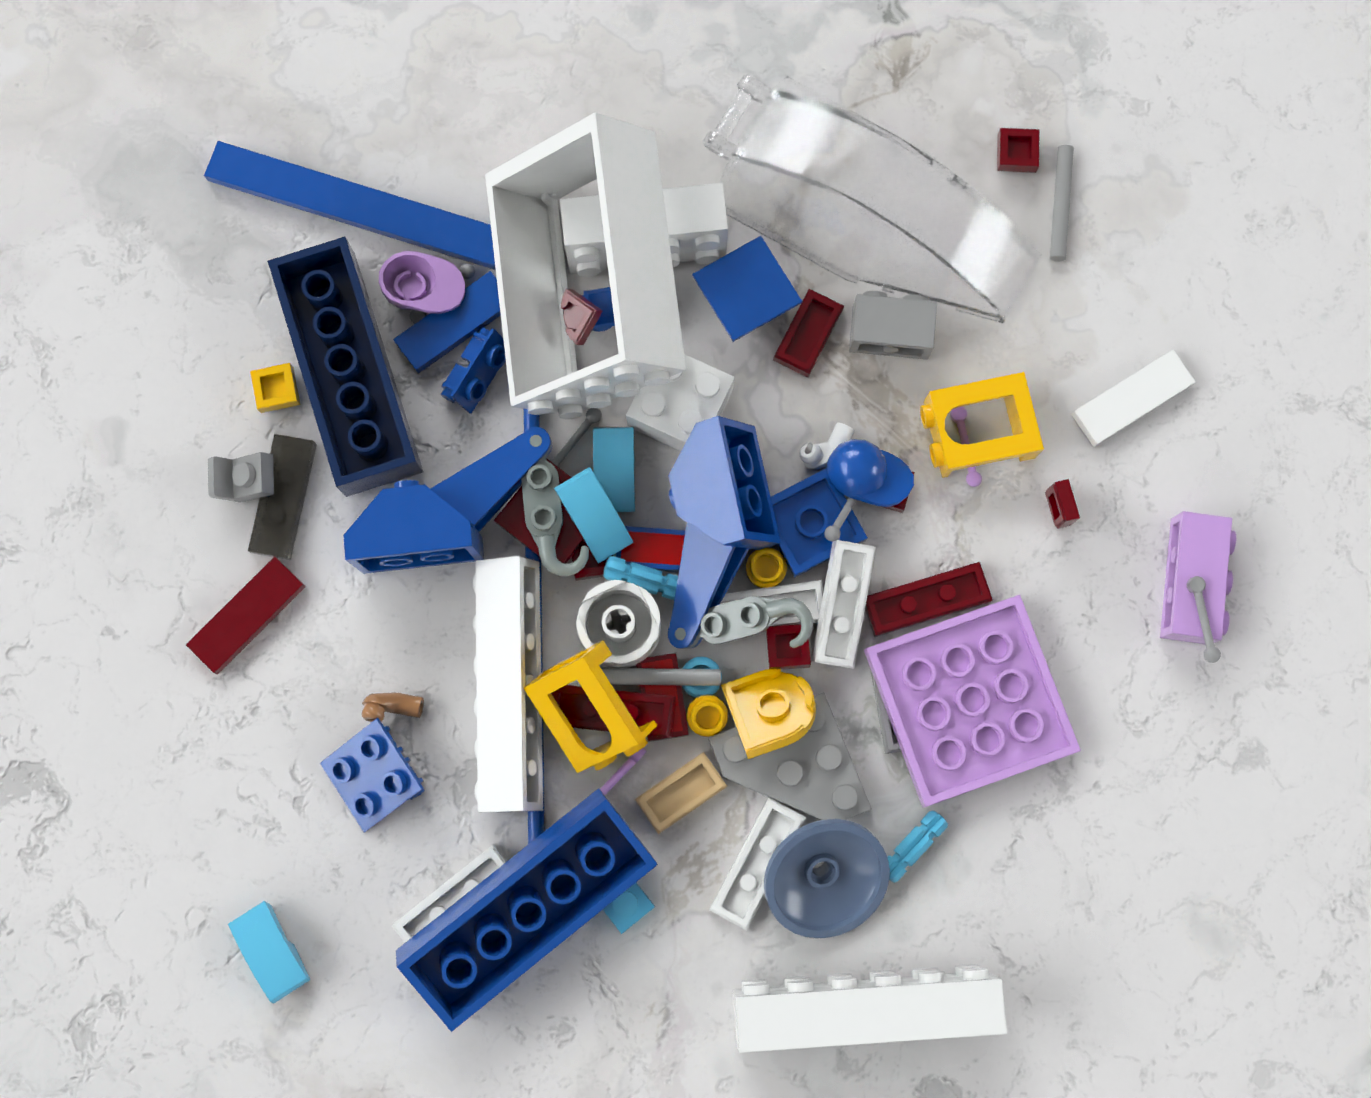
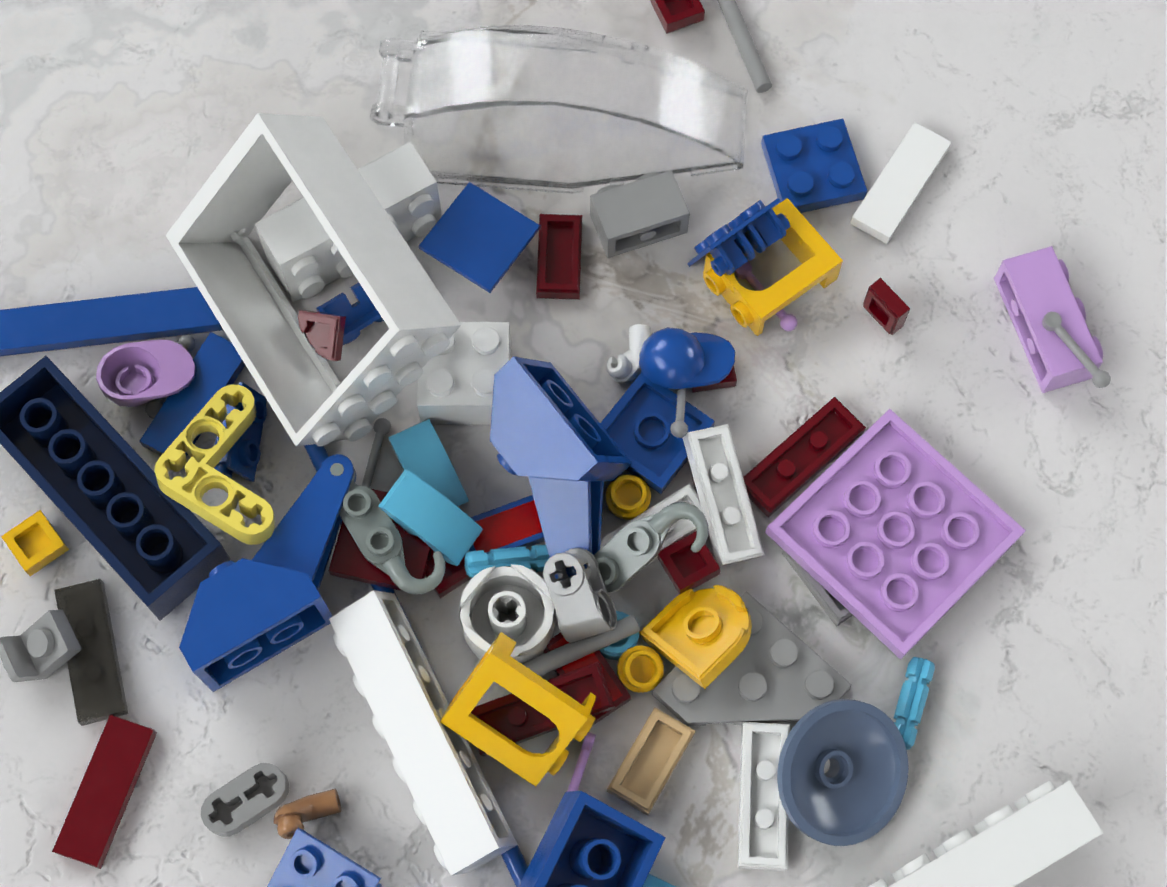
camera: 25 degrees left, 10 degrees down
(349, 663) = (238, 790): none -> light grey beam
(424, 398) = (201, 472): none -> light yellow beam
(681, 637) = (579, 600): none -> light grey piece
(945, 389) = (751, 231): none -> blue hinge
(1065, 350) = (814, 166): none -> blue plate

